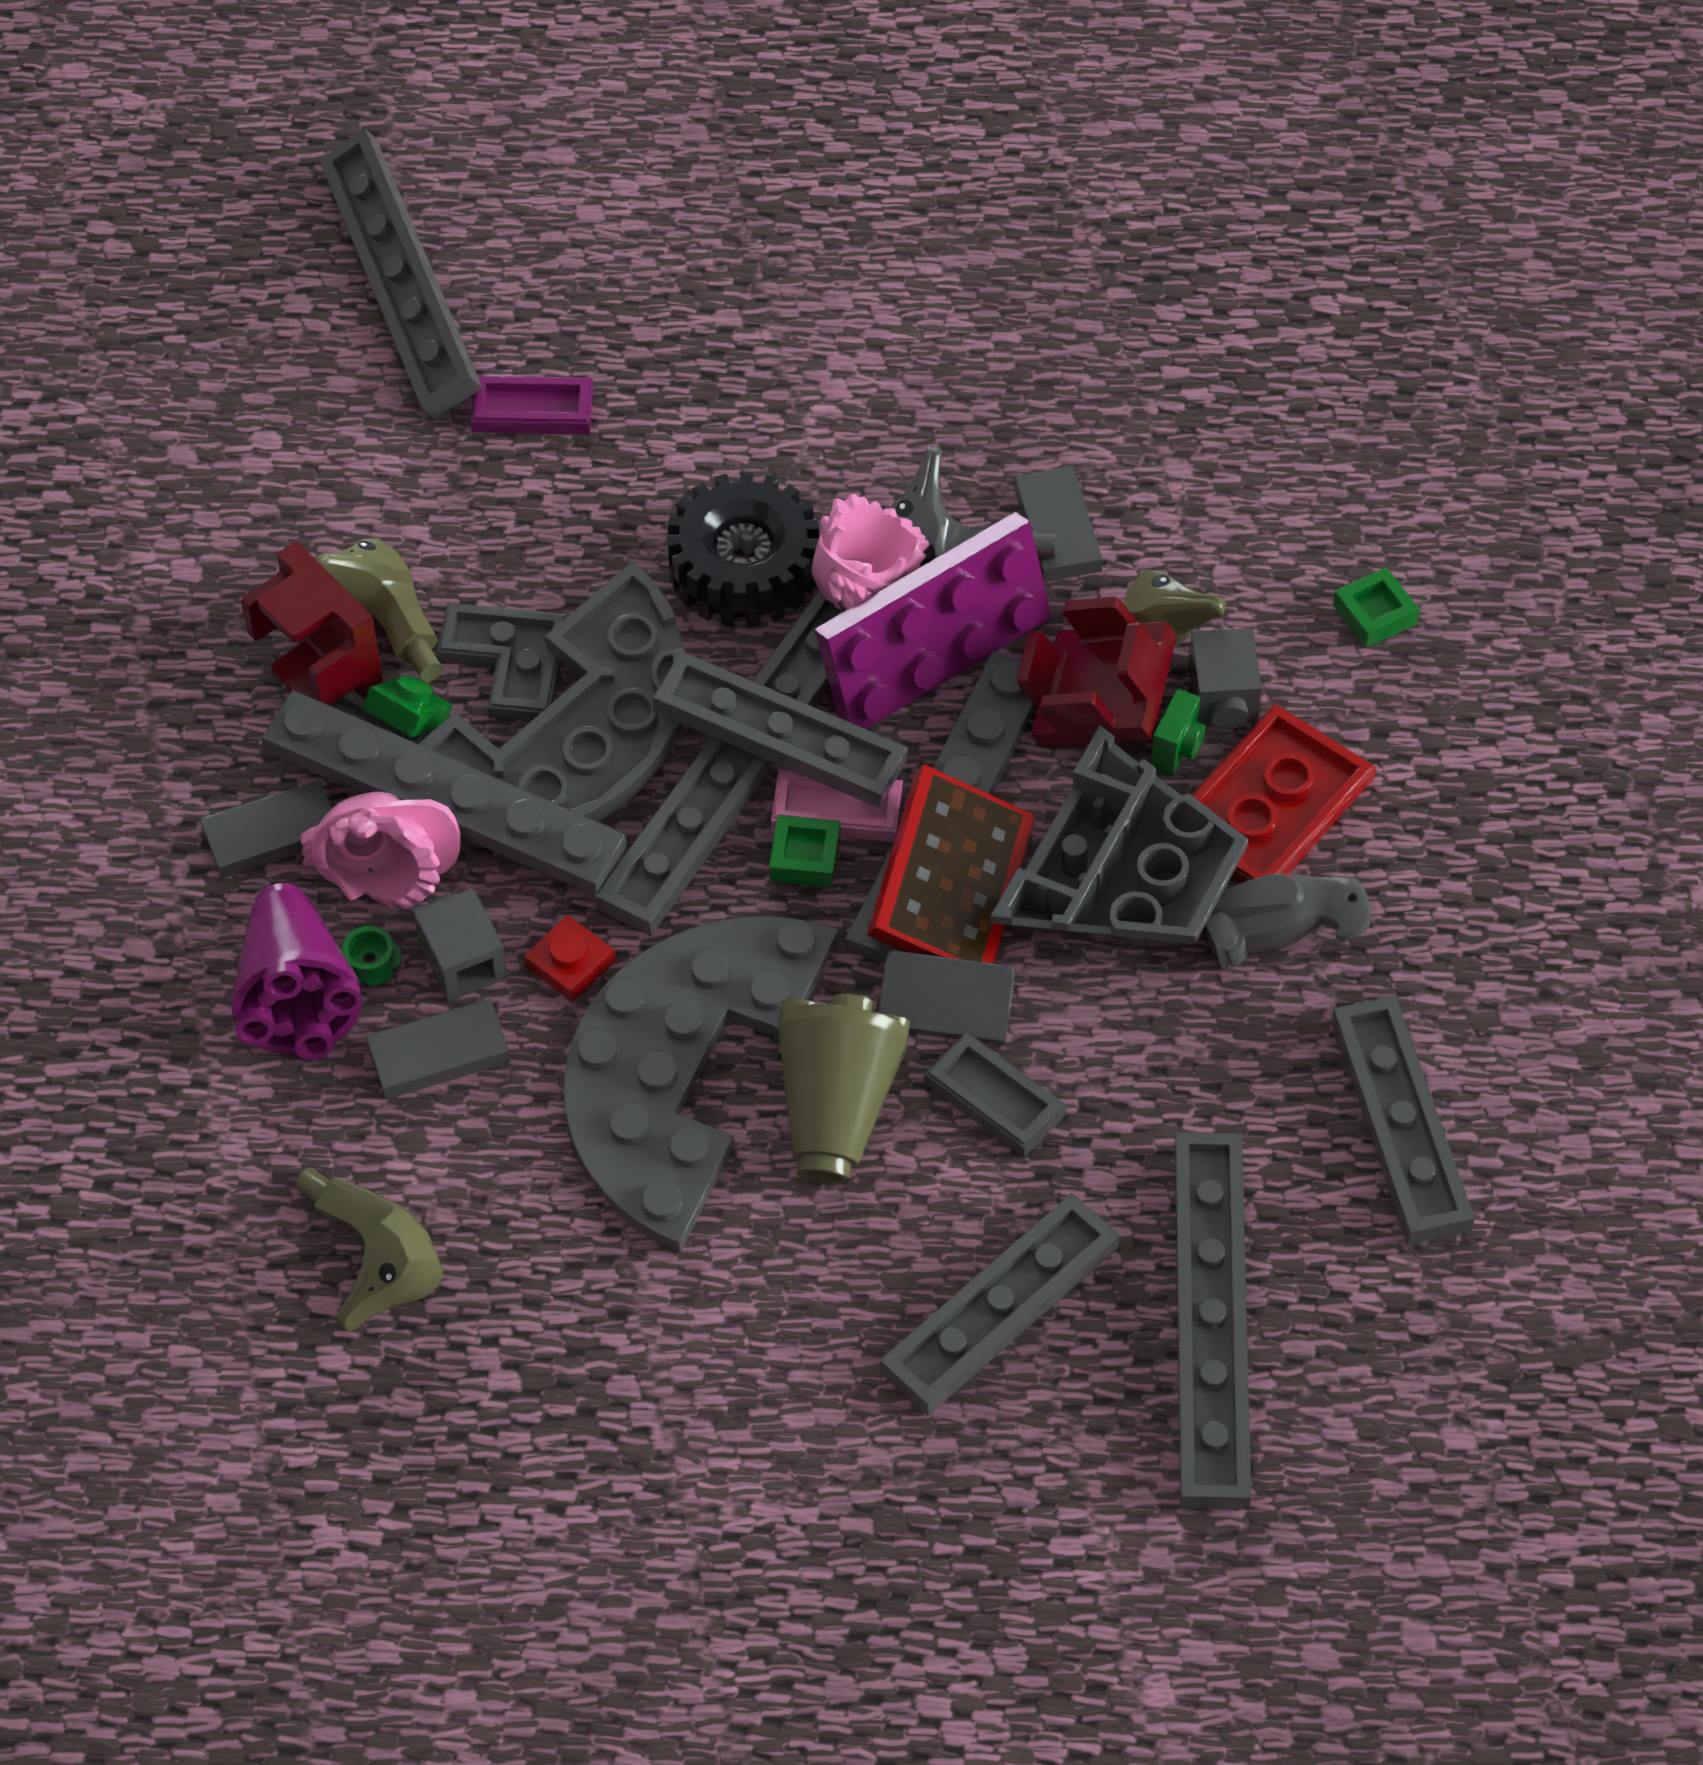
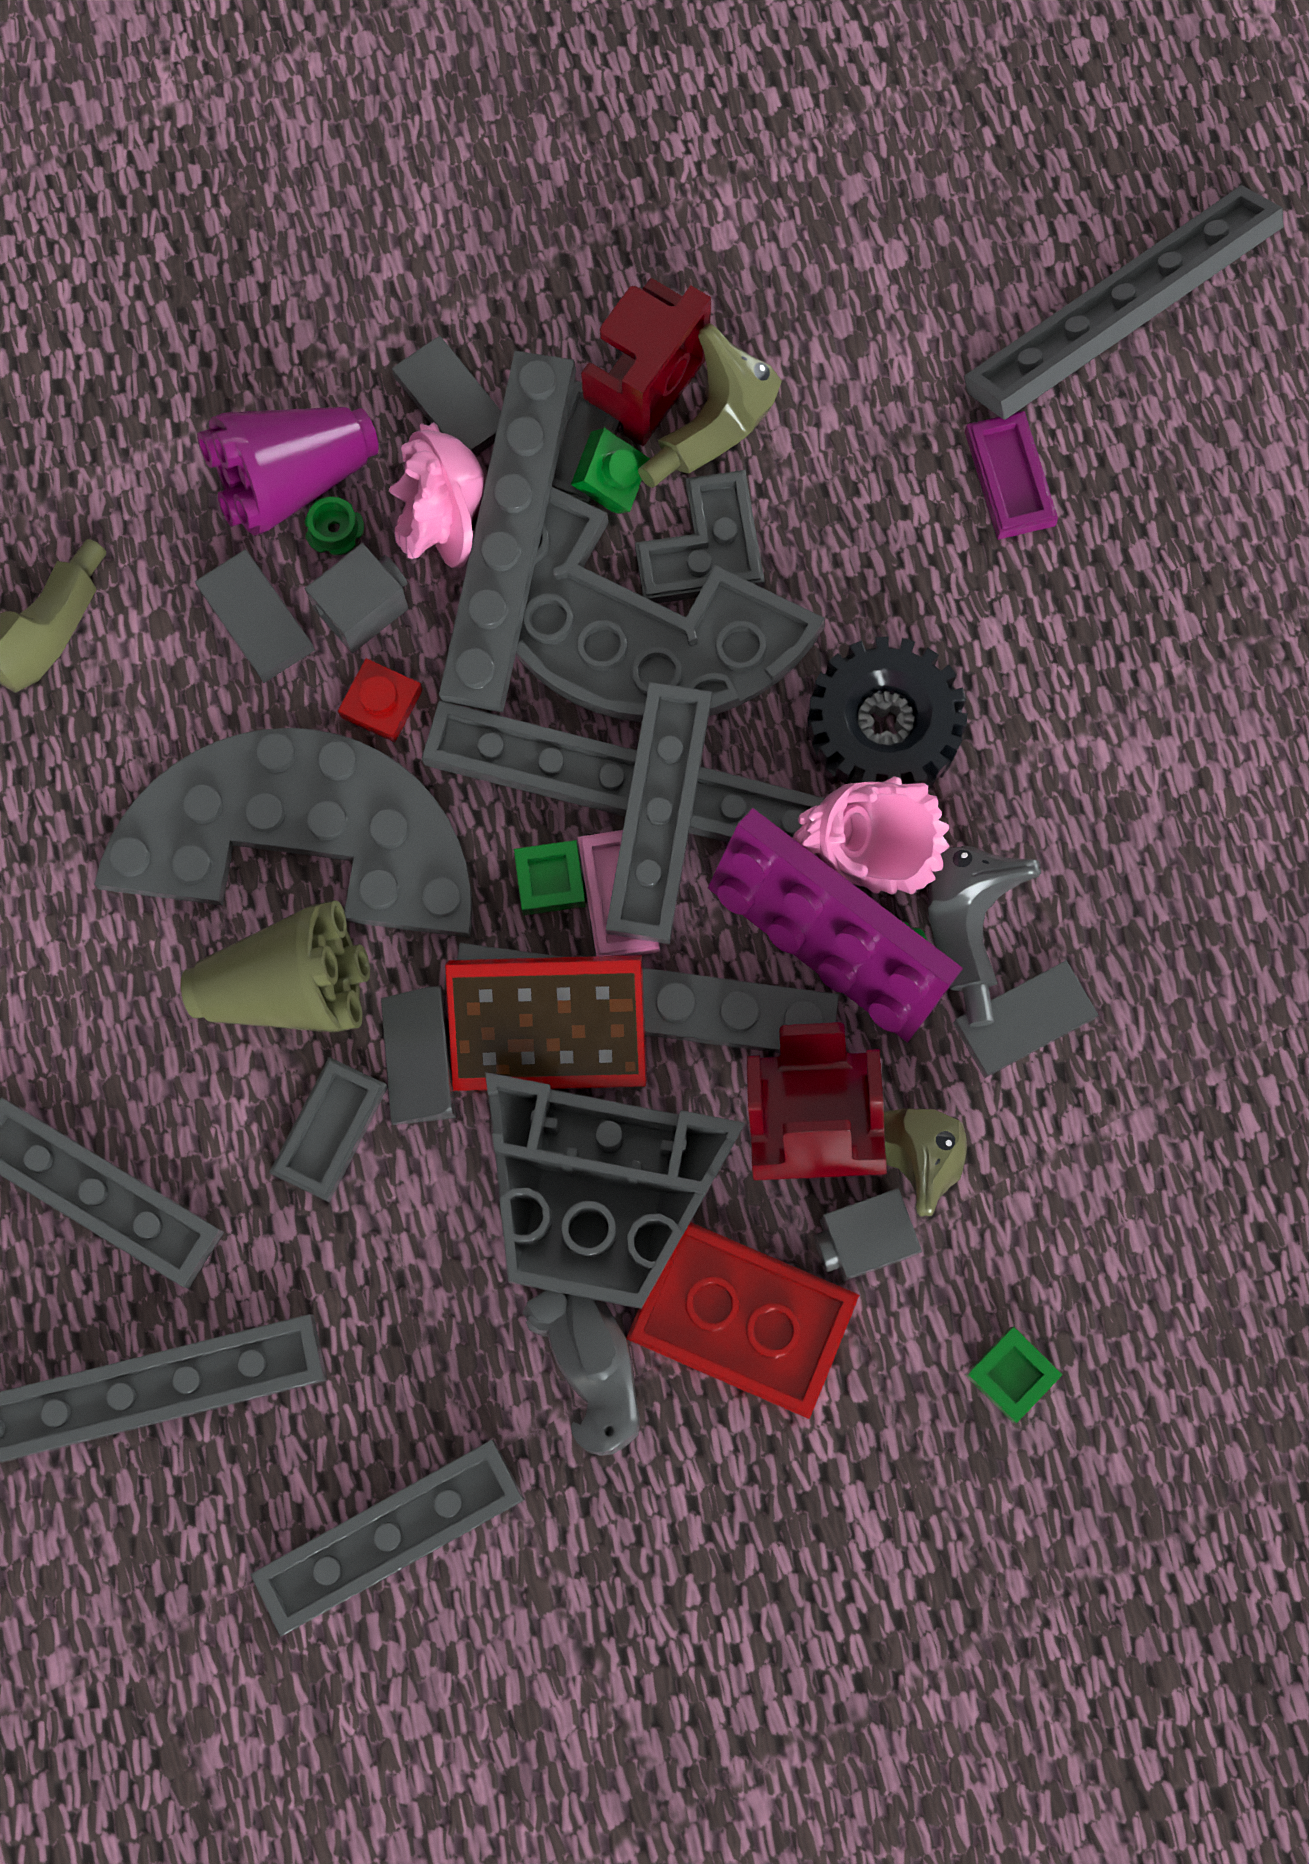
camera: 75 degrees right, 20 degrees up
(1177, 733) = (785, 1205): green plate -> none

